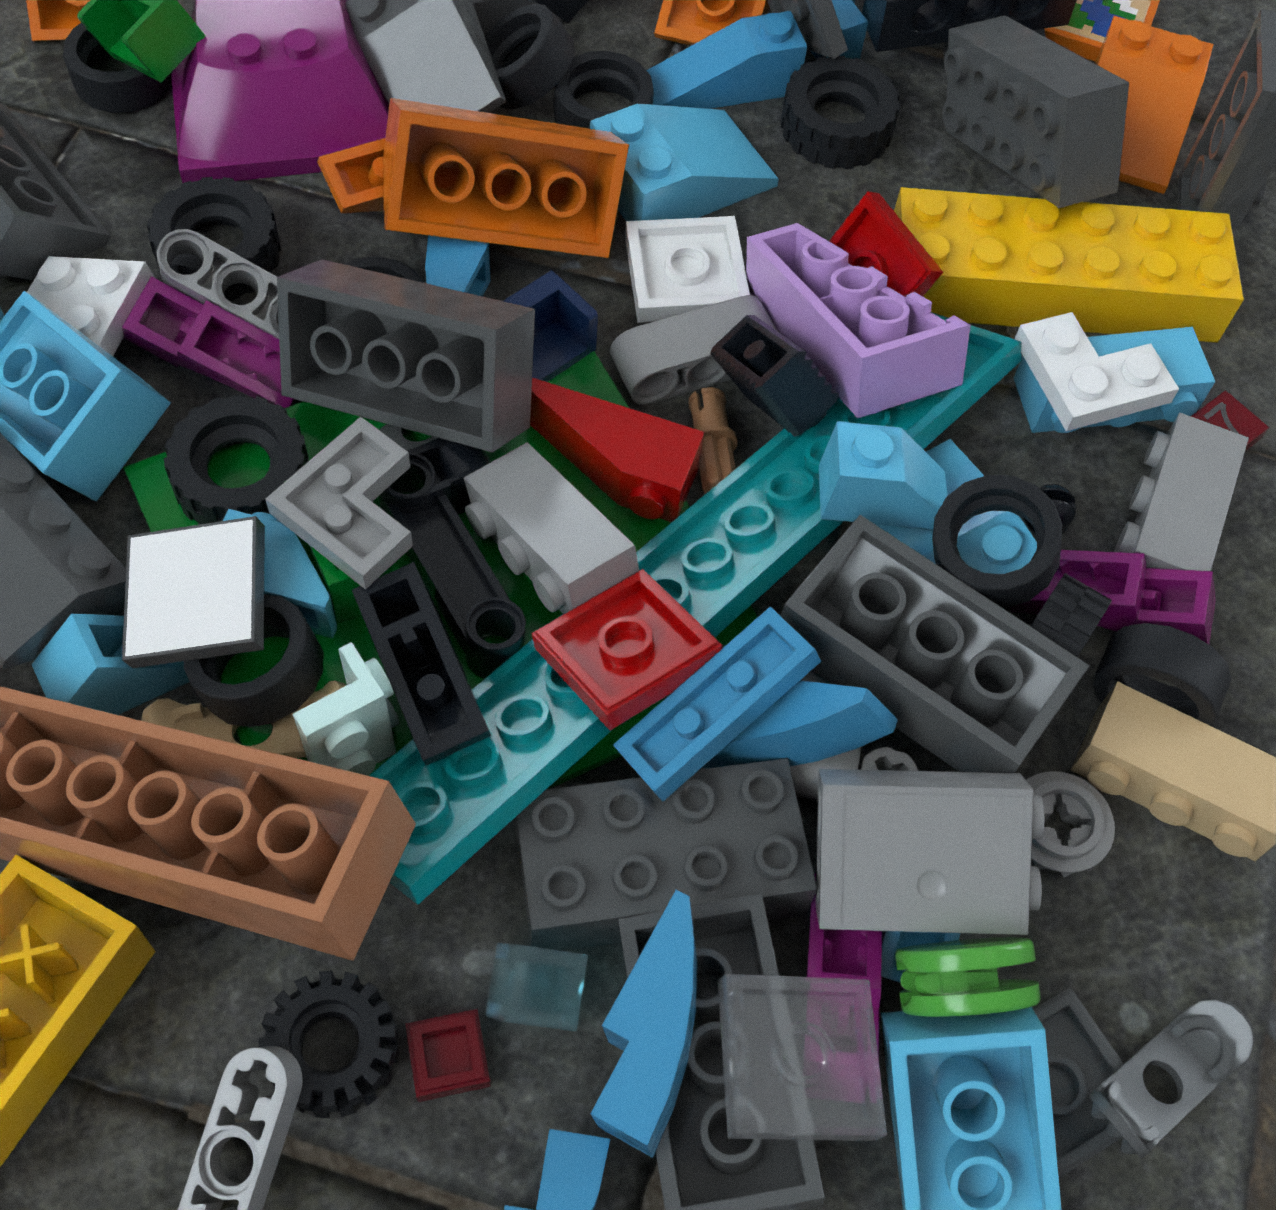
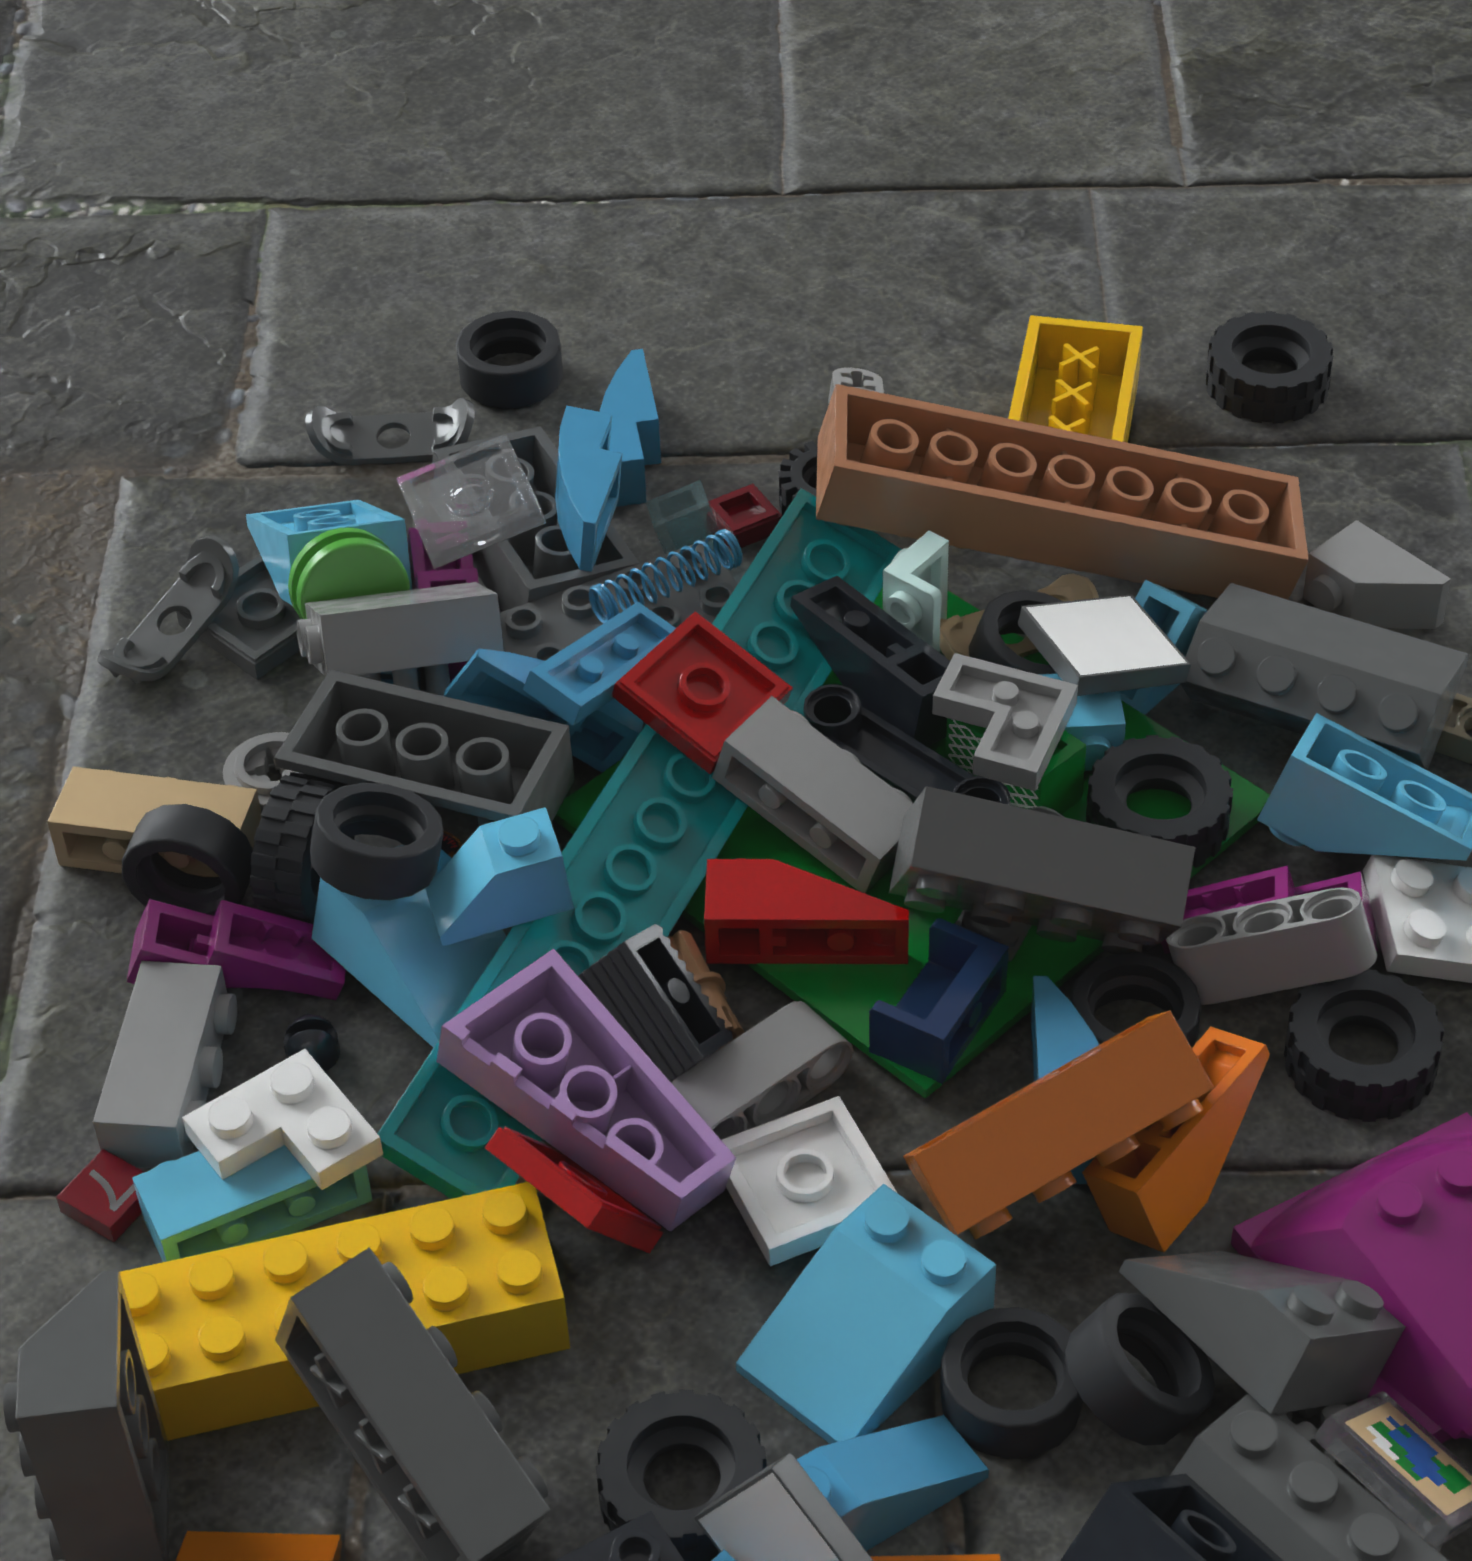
camera: 170 degrees right, 15 degrees down
(691, 813) = (722, 555): none -> dark azure piece

